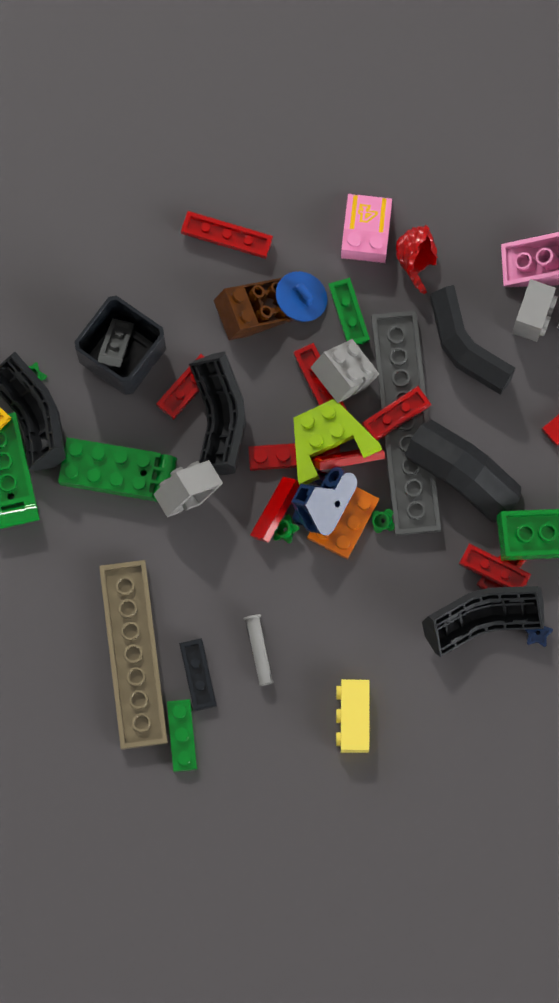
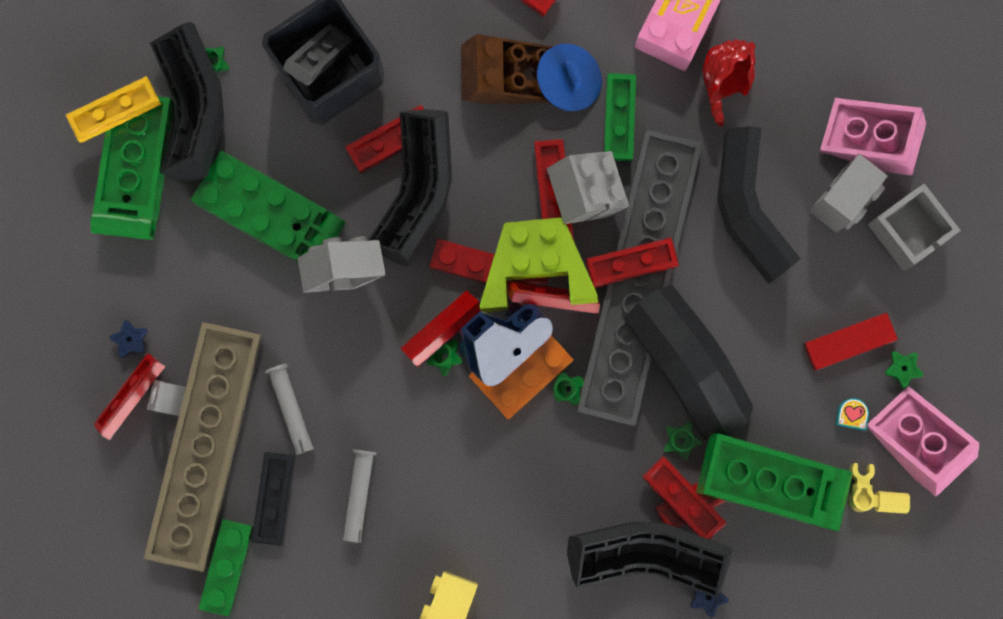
camera: 15 degrees right, 5 degrees up
(49, 604) = (135, 345): none -> dark blue plate
(65, 637) = (128, 396): none -> red tile
(93, 629) = (166, 397): none -> light grey bracket
(185, 605) = (290, 409): none -> light grey pin
(478, 523) = (684, 432): none -> green plate

